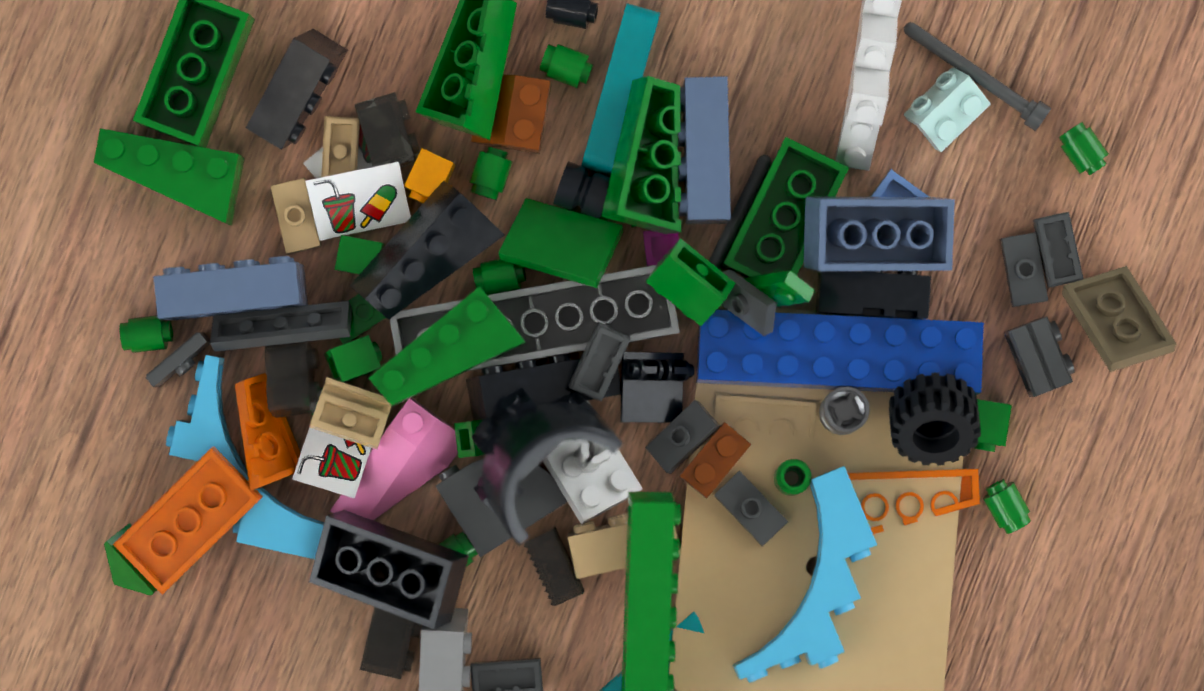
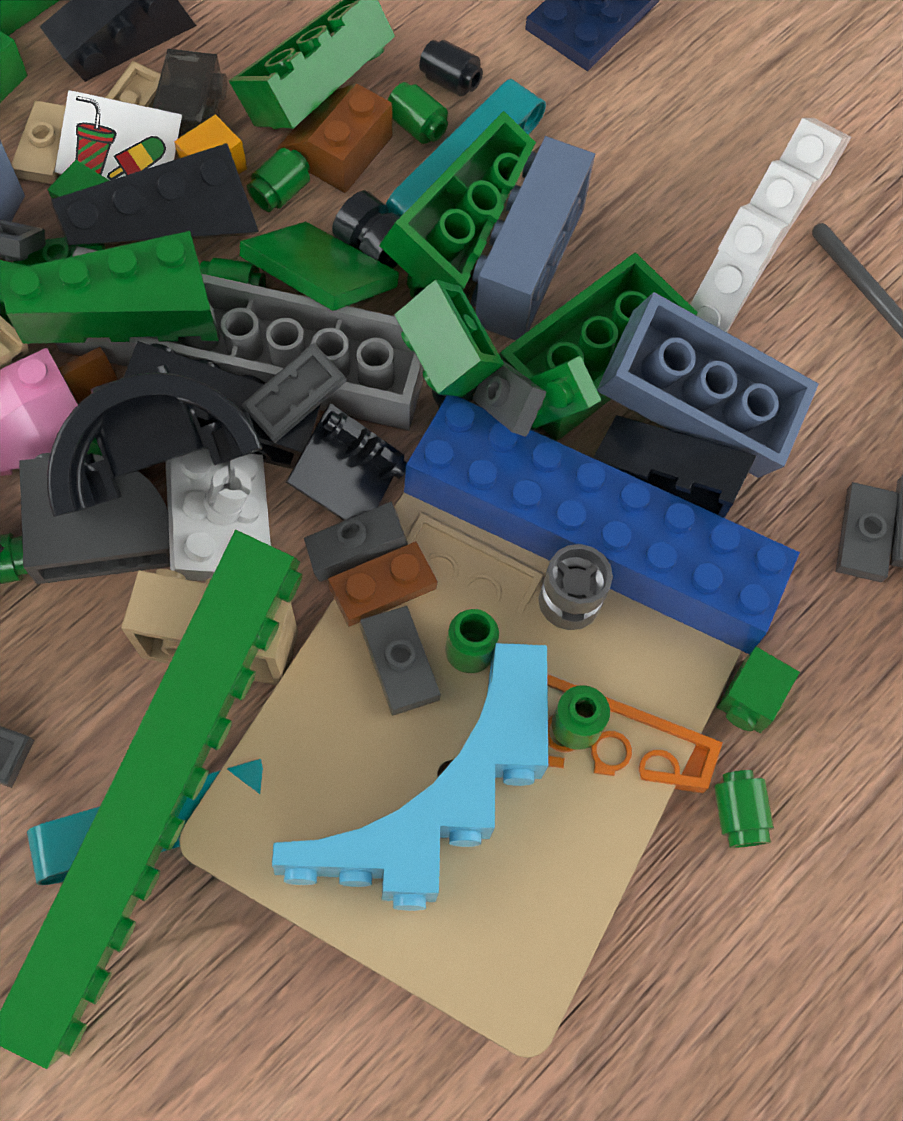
camera: 15 degrees right, 20 degrees down
(442, 399) = (87, 372): none -> dark orange tile
(554, 566) = (105, 647): clear smoke brick -> none
(872, 501) = (579, 731): none -> green brick
(934, 419) = (686, 673): black tyre -> none
(947, 108) = (837, 322): light aqua bracket -> none
(1039, 356) = (854, 636): dark grey brick -> none

